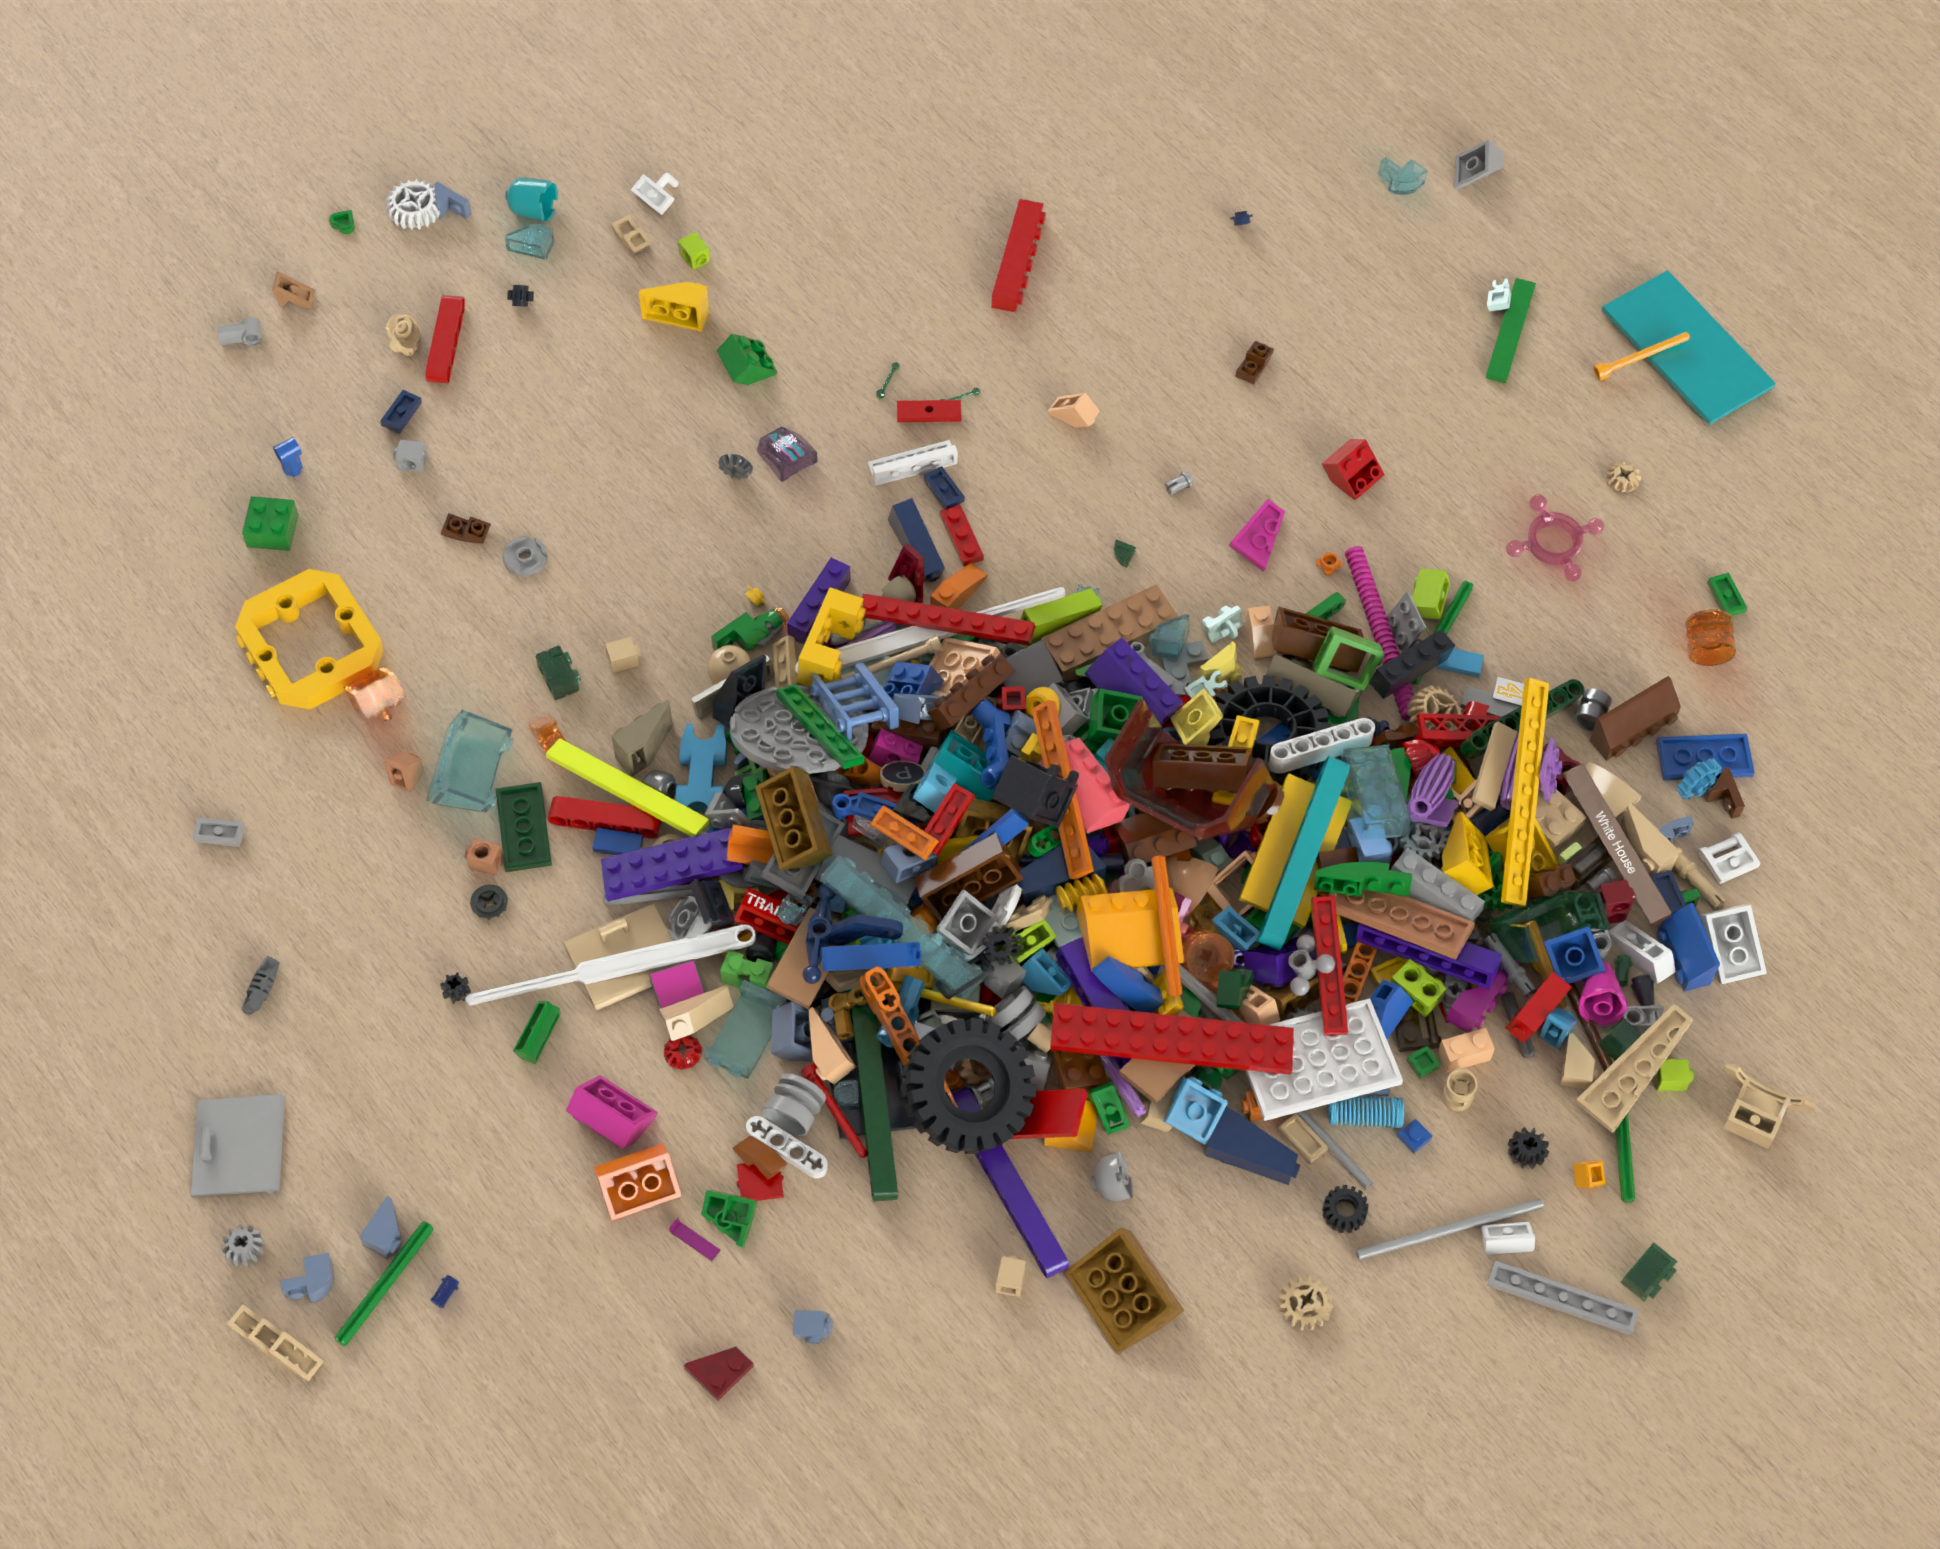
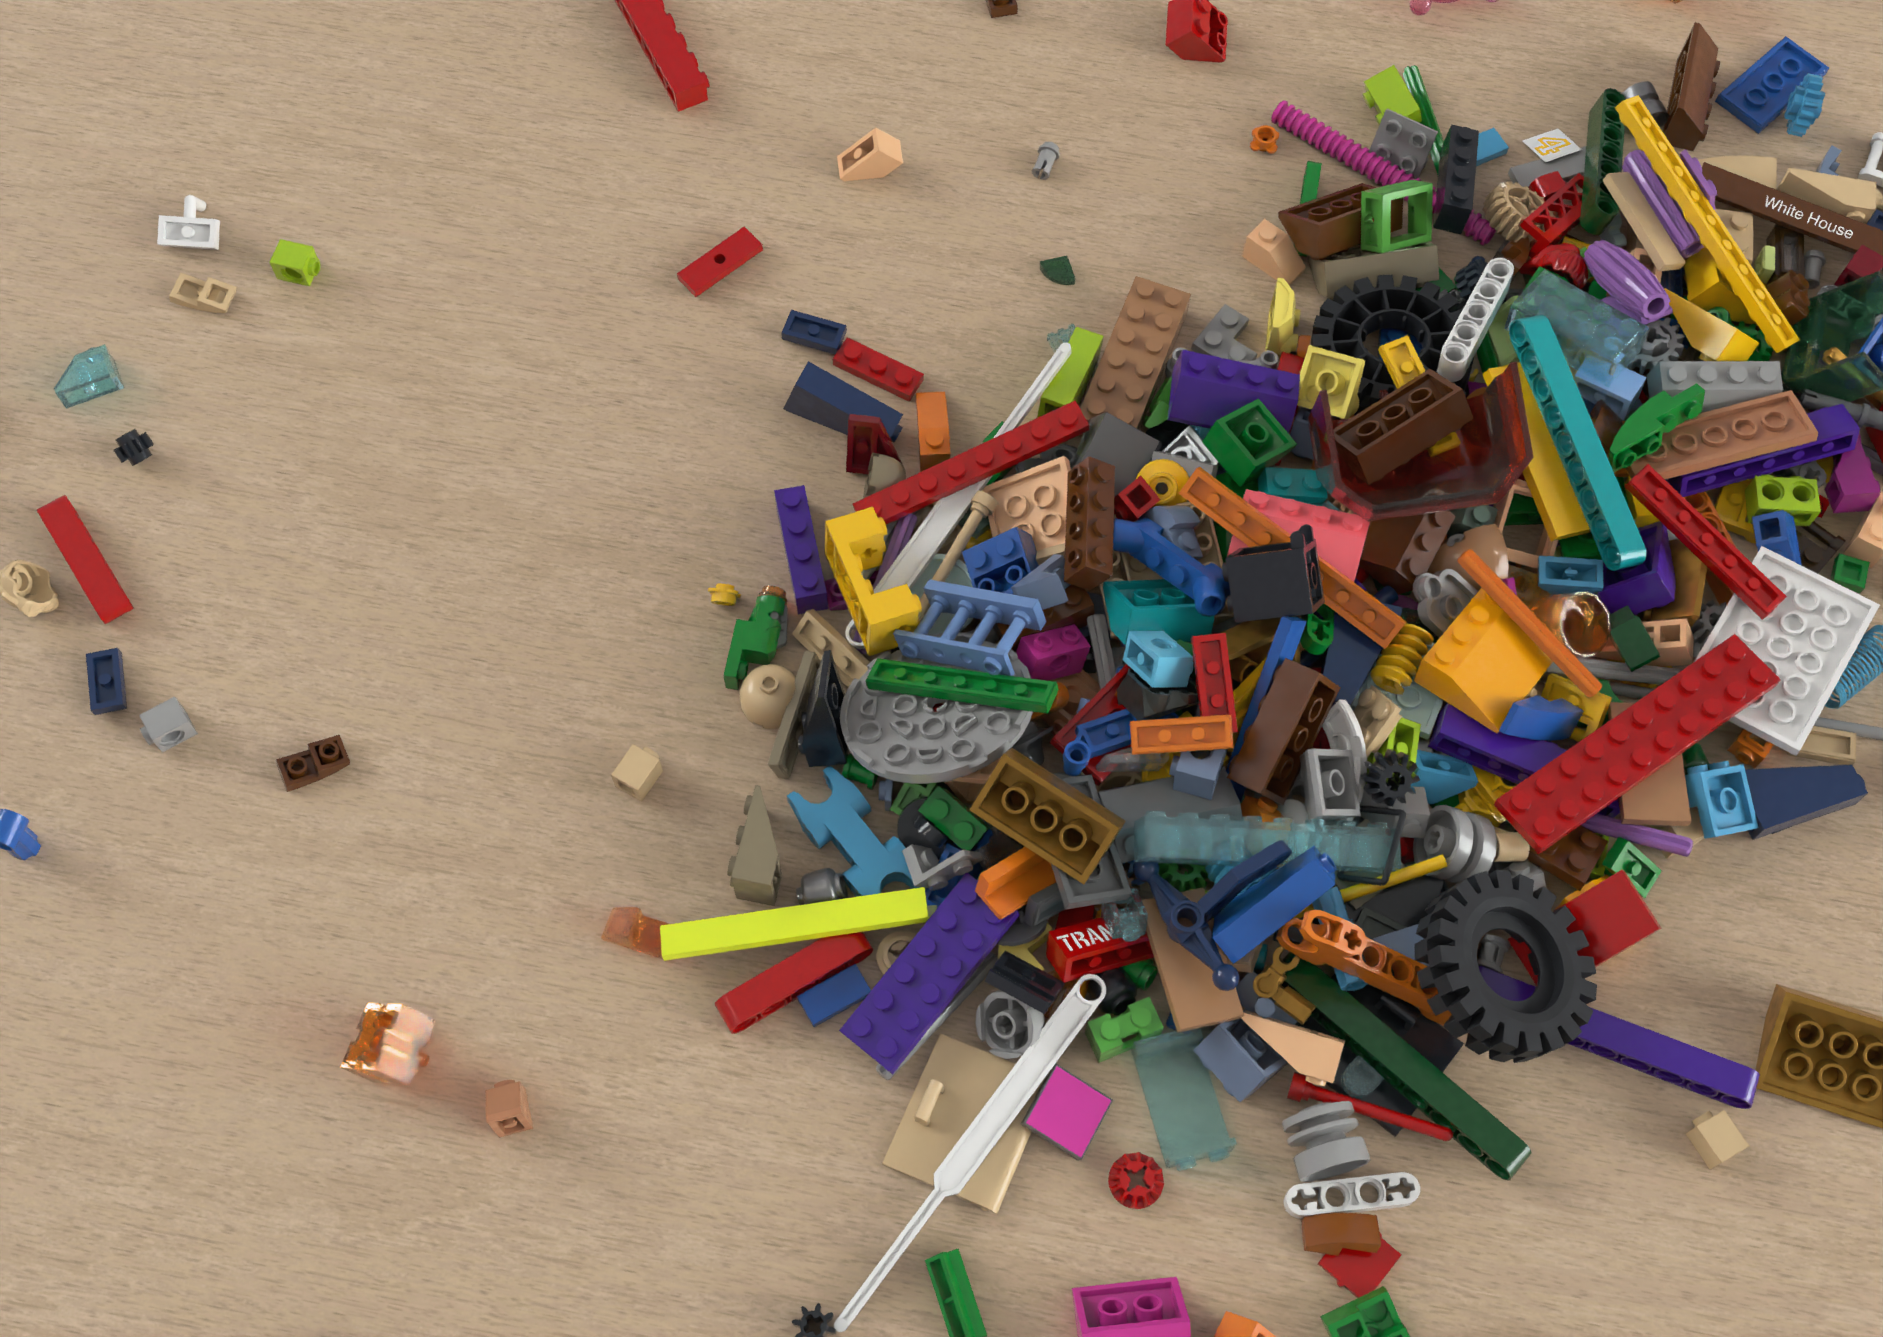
camera: 40 degrees left, 5 degrees up
(270, 523) = (59, 934): green brick -> none
(295, 594) = (171, 996): yellow panel -> none
(469, 763) = (576, 1041): clear light blue windscreen -> none
(487, 864) = (712, 1144): nougat brick -> none
(487, 893) = (739, 1179): pearl dark grey gear -> none
(523, 827) = (708, 1063): dark green tile -> none
(528, 566) = (425, 755): light grey tile -> none
(532, 198) = (47, 327): teal cylinder -> none
(557, 672) = (582, 849): clear green brick -> none
(676, 305) = (333, 334): yellow slope -> none
(696, 1012) = (1113, 1128): tan slope -> none
(728, 461) = (568, 465): dark grey gear -> none
(746, 359) = (467, 342): green slope -> none
(786, 452) = (605, 412): slope -> none
(881, 392) = (647, 279): clear green hinge -> none
(901, 775) = (1093, 672): tile -> none
(913, 462) = (756, 332): white fence -> none
(976, 391) = (747, 208): clear green hinge -> none
(1032, 749) = (1211, 538): yellow tile -> none
(1112, 1179) = (1707, 942): light grey cylinder -> none
(1170, 637) = (1202, 322): clear light blue slope -> none
(1210, 685) = (1293, 348): light aqua plate -> none
(1224, 625) = (1235, 272): light aqua hips -> none
(1258, 535) = (1172, 159): dark pink wing -> none
(1324, 963) = (1709, 542): light grey piece -> none
(1726, 789) = (1839, 104): reddish brown slope -> none

